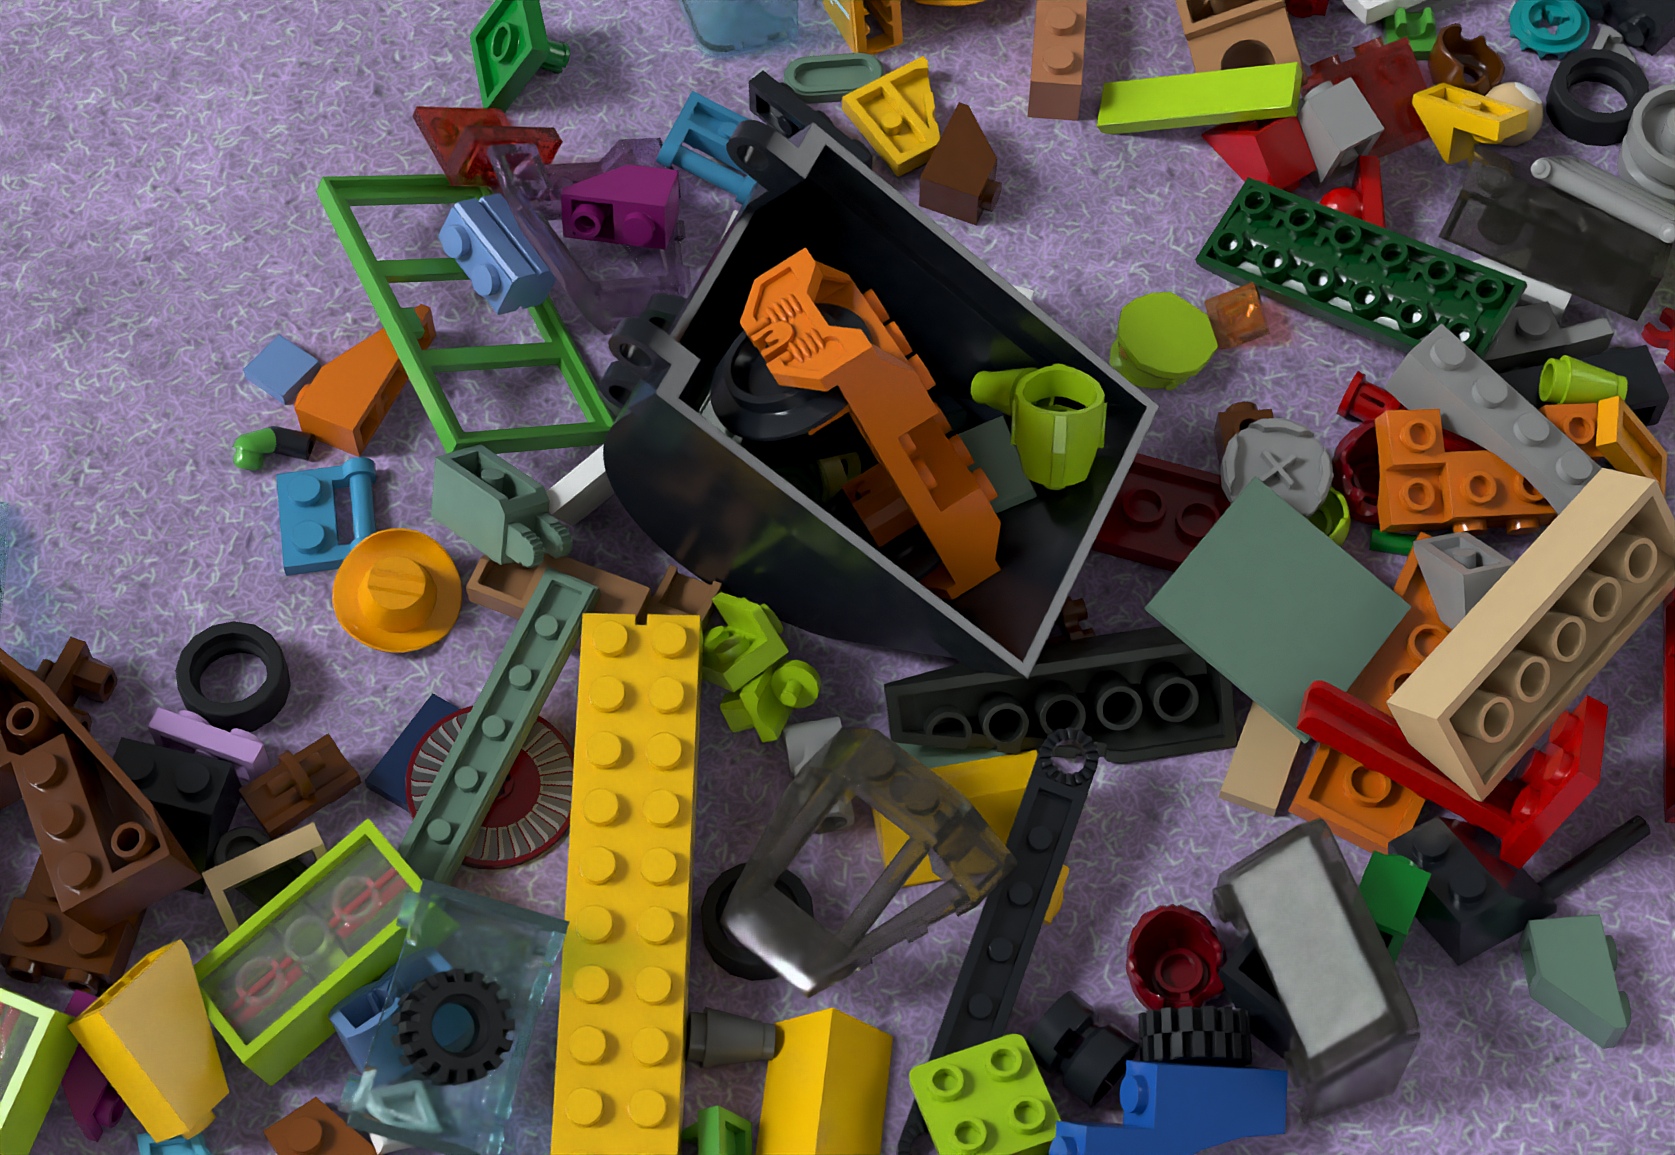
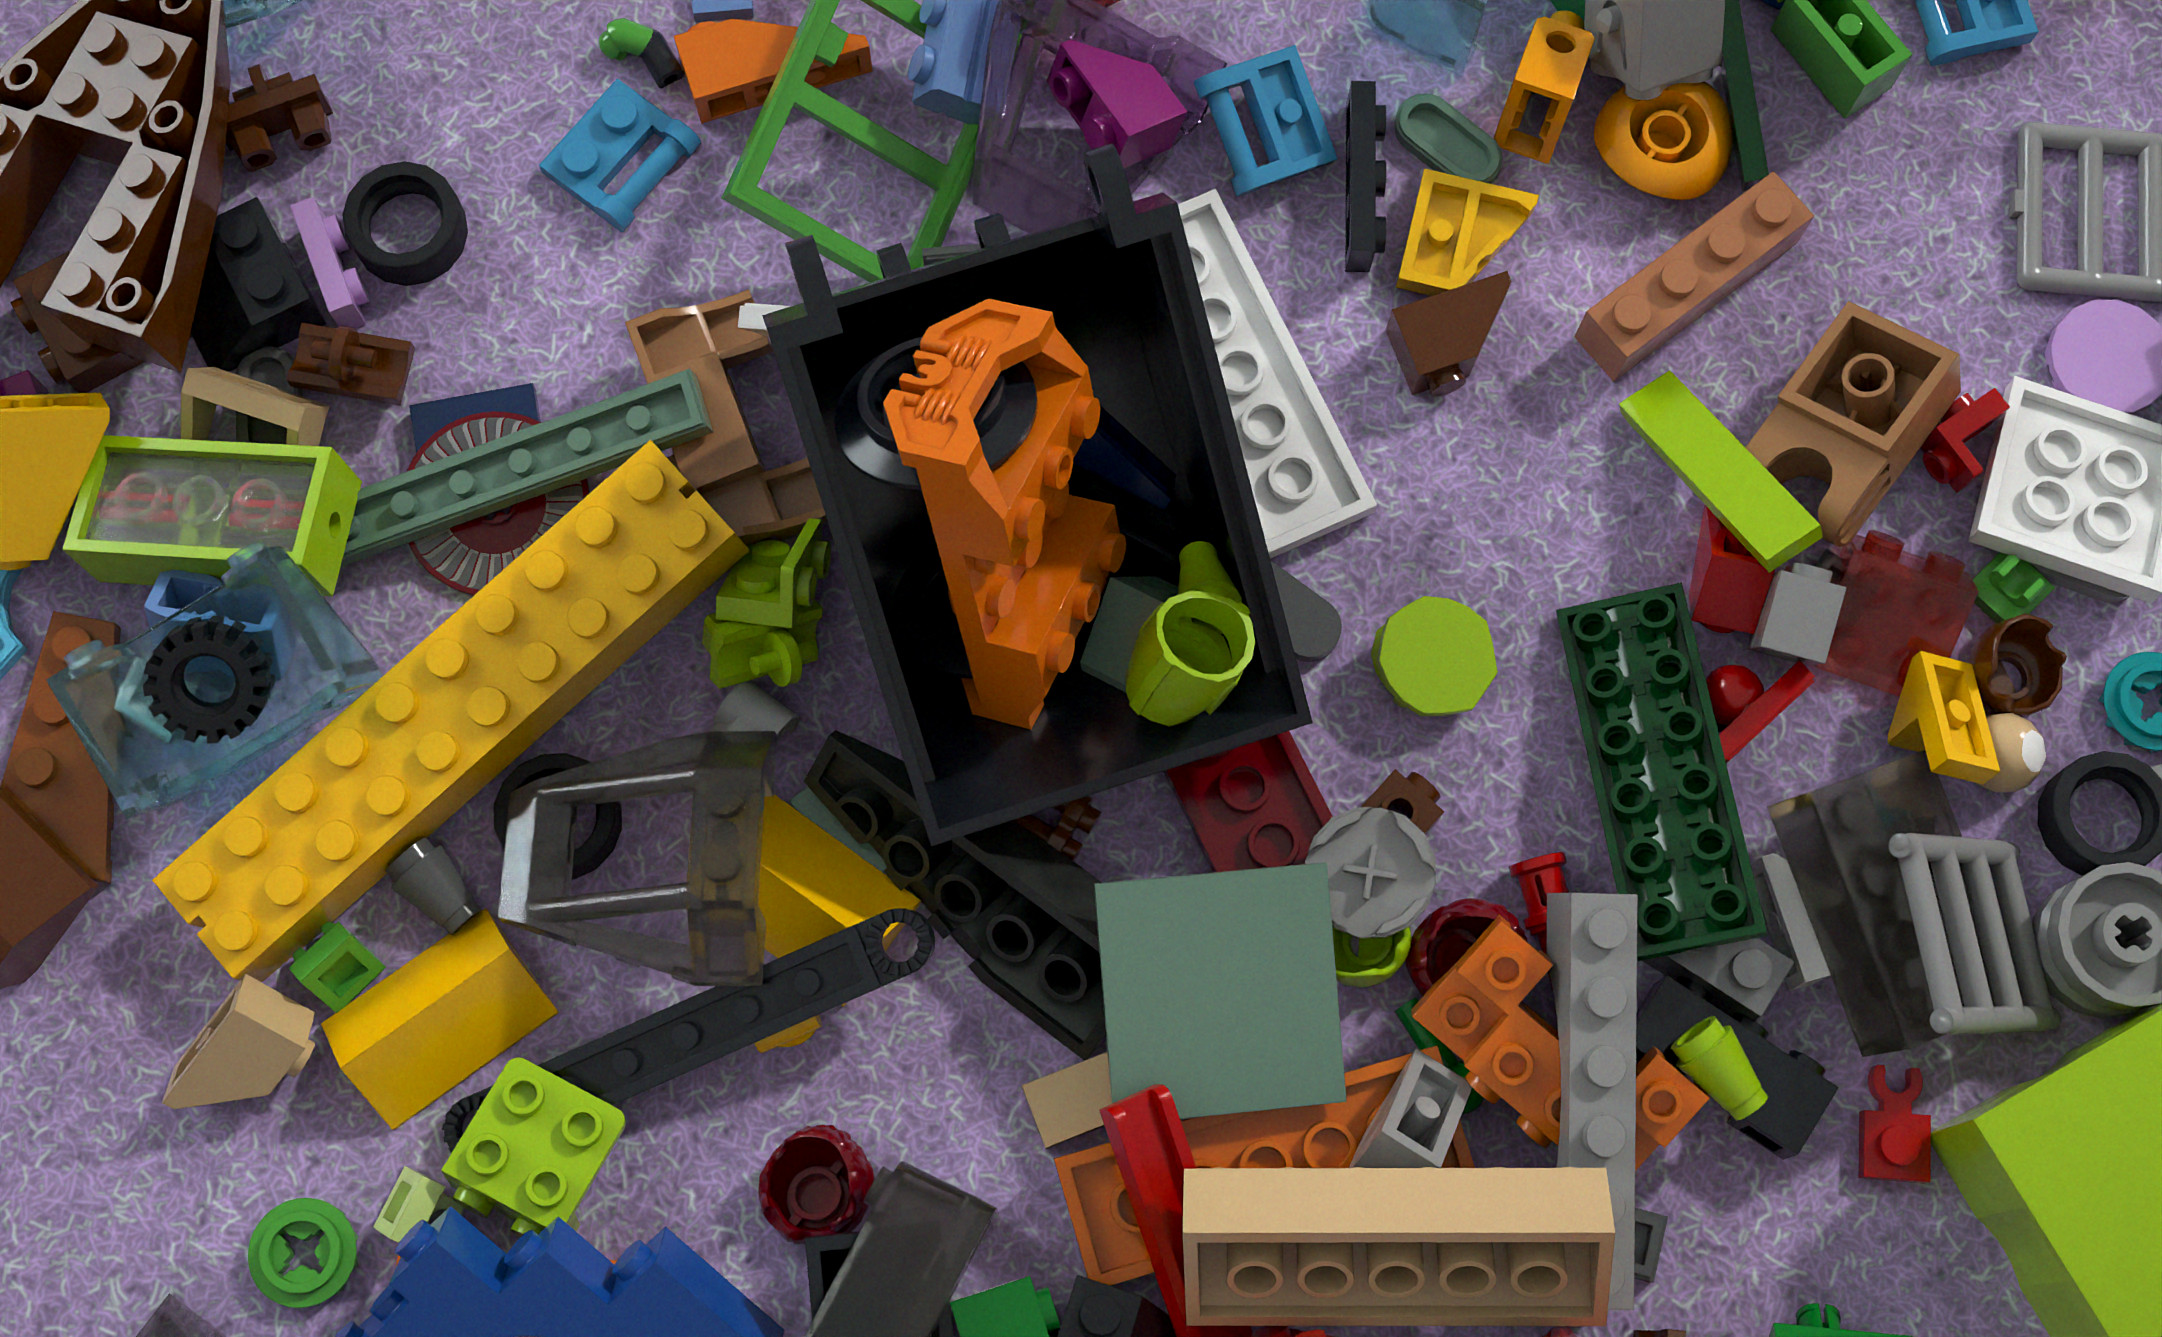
camera: 45 degrees right, 15 degrees up
(397, 591) = (593, 272): light orange hat -> none
(496, 508) = (706, 278): sand green hinge -> none
(1099, 1056) = (665, 1174): black wheel -> none
(1196, 1035) = (747, 1263): black tyre -> none
(1237, 316) = (1527, 697): clear orange tile -> none
(1587, 338) = (1795, 1025): light grey tile -> none
(1628, 442) = (1707, 1163): light orange tile -> none

